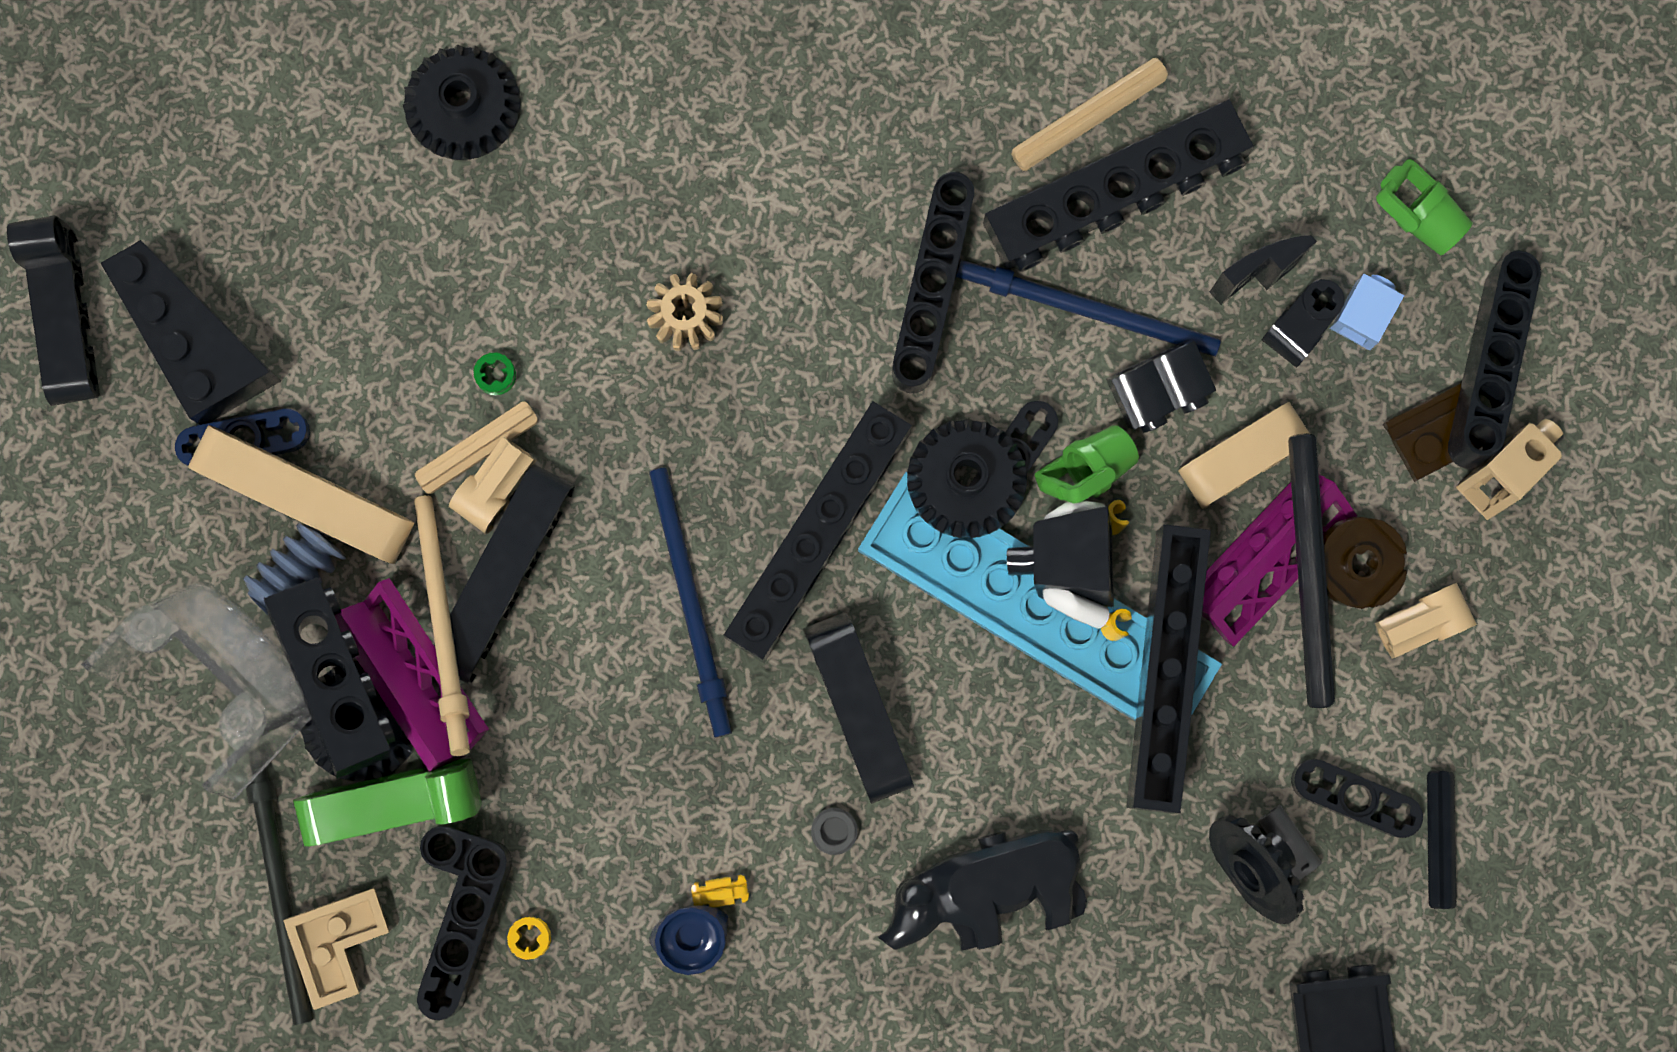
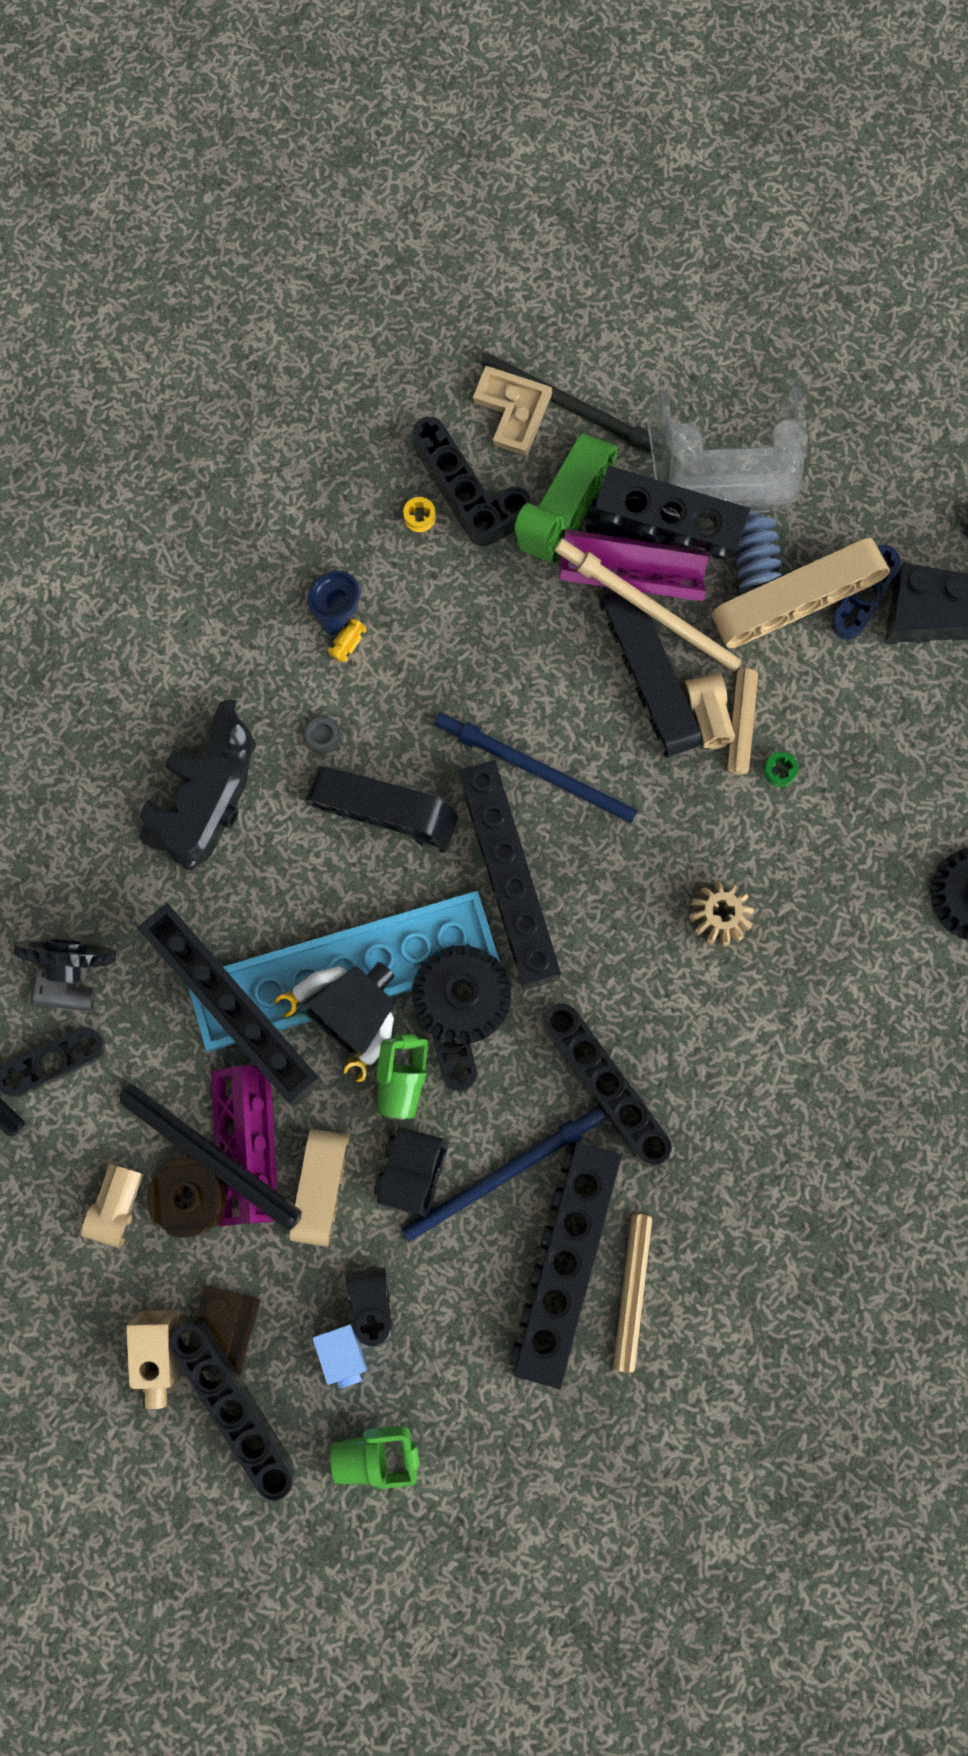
camera: 130 degrees right, 5 degrees down
(1265, 264) = (424, 1315): black slope -> none

